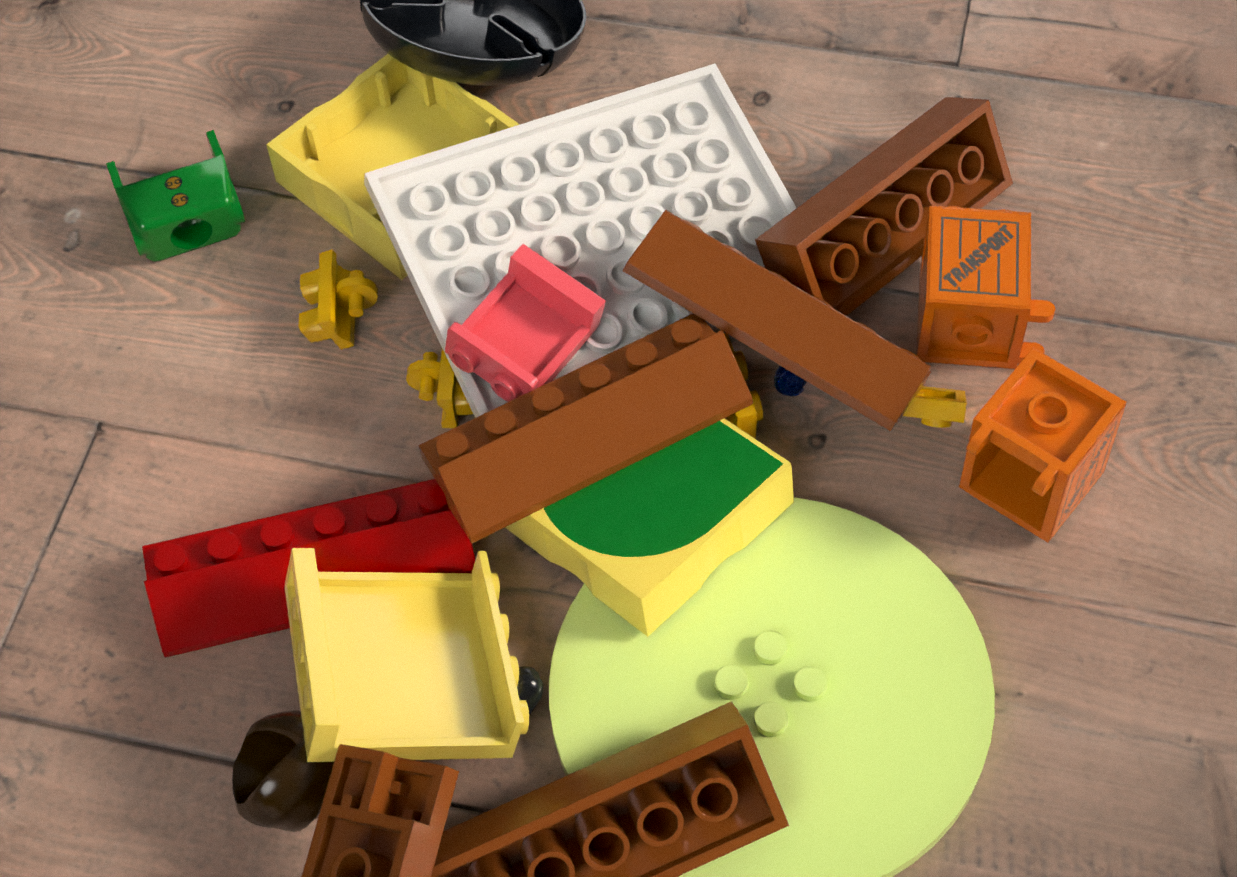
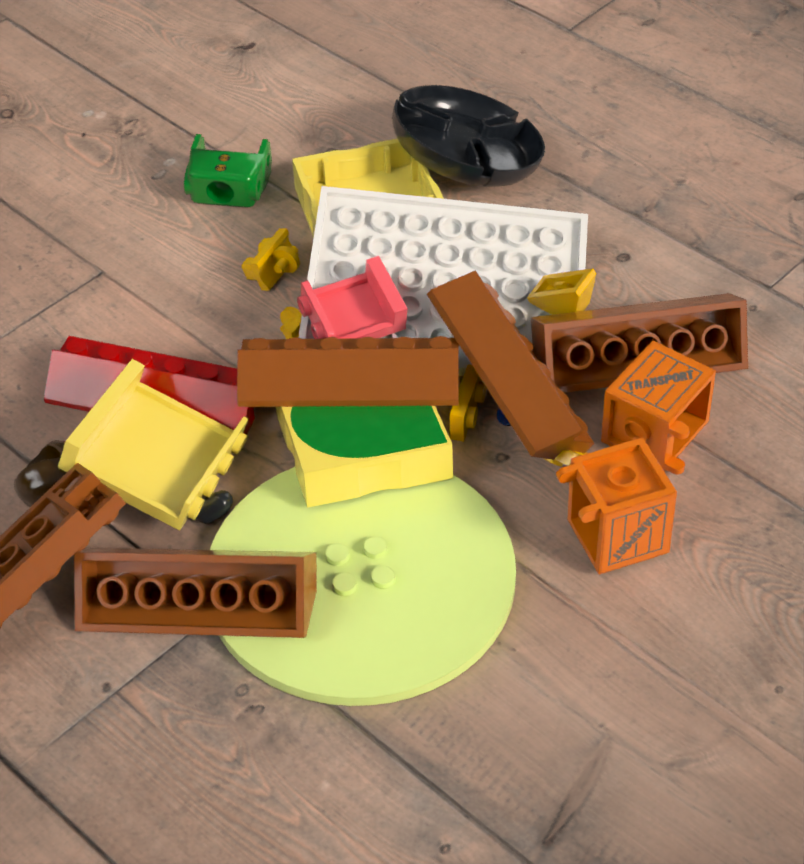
camera: 30 degrees right, 10 degrees down
(765, 186) = (564, 291): none -> yellow slope

